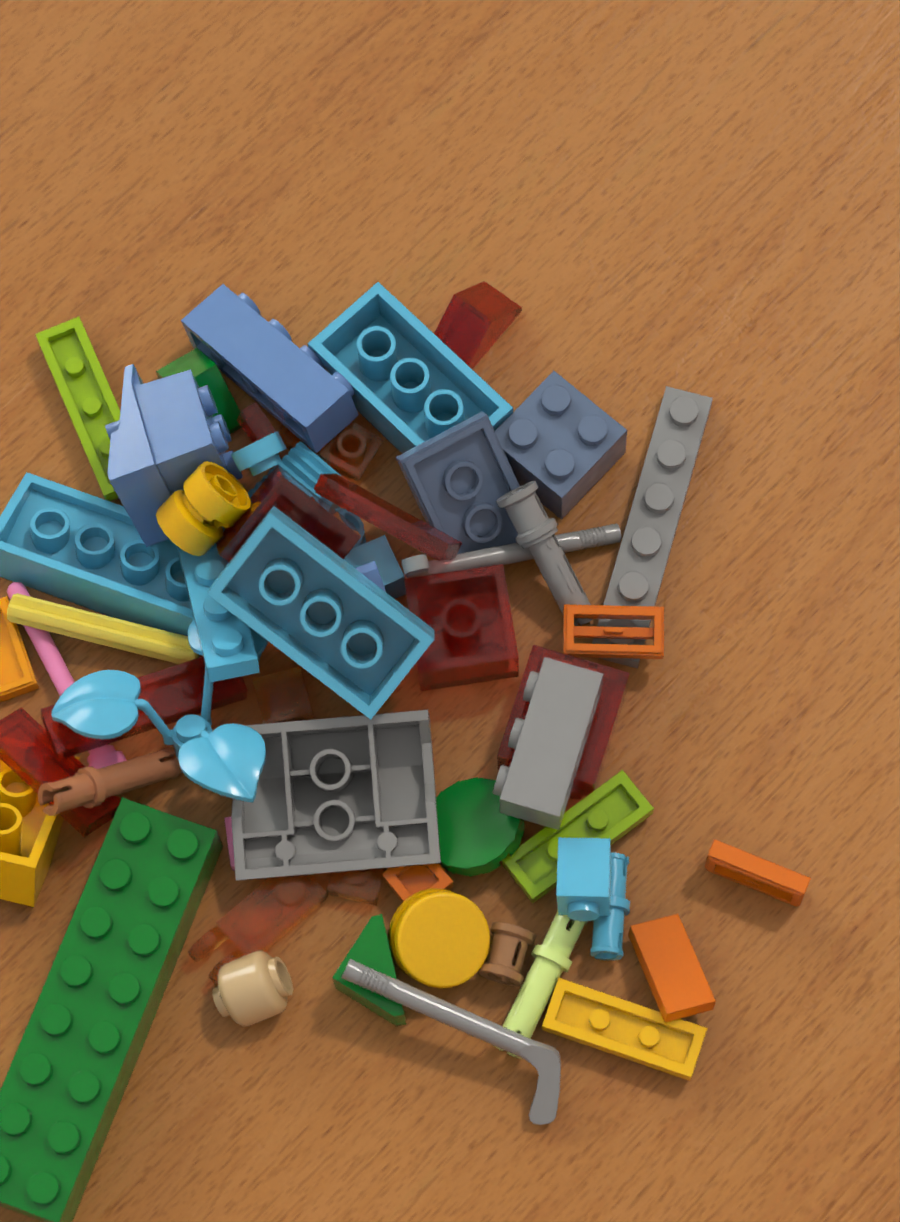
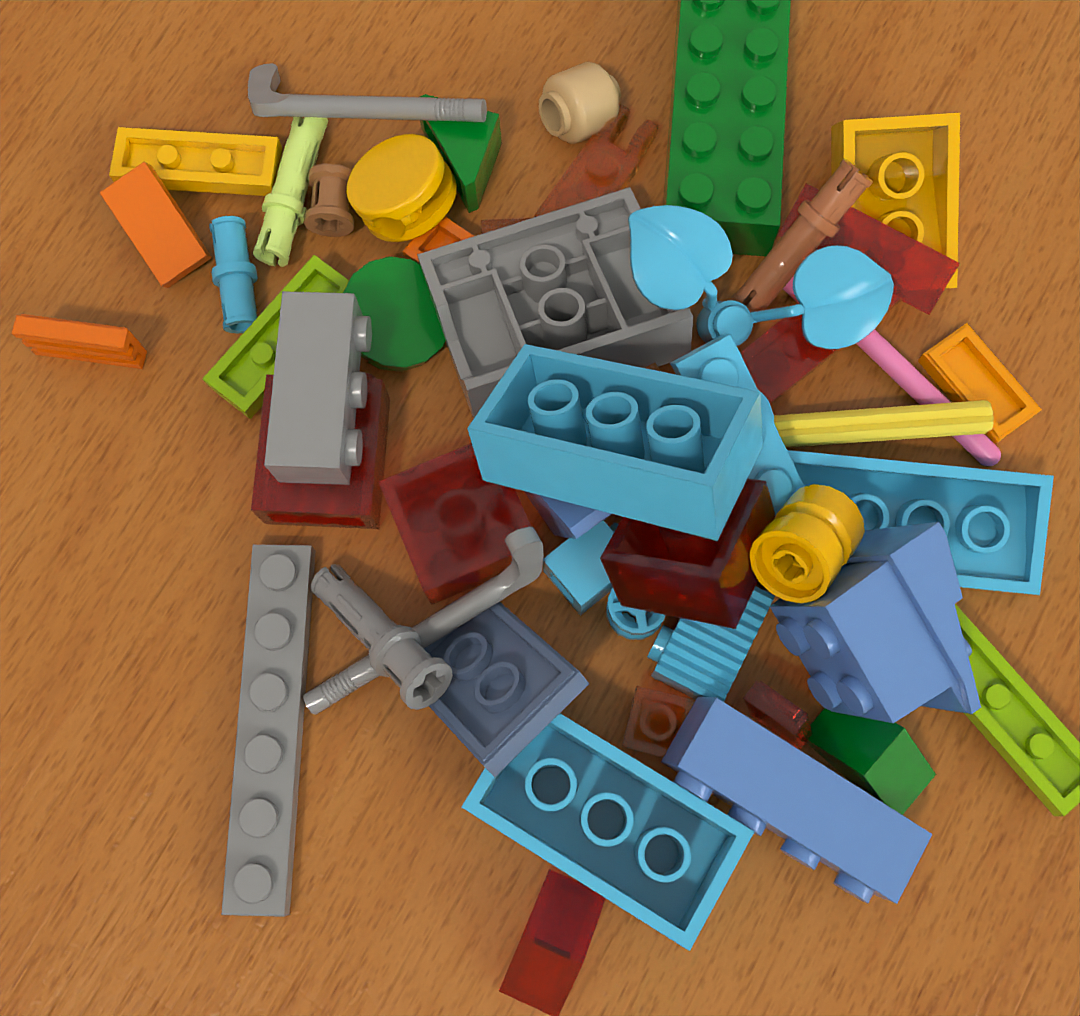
camera: 165 degrees right, 5 degrees up
(260, 454) = (764, 645): medium azure plate -> none
(387, 517) = (579, 611): clear red tile -> none
(561, 443) = (398, 792): sand blue brick -> none
(584, 878) = (252, 263): medium azure brick -> none
(656, 633) = (287, 581): orange tile -> none

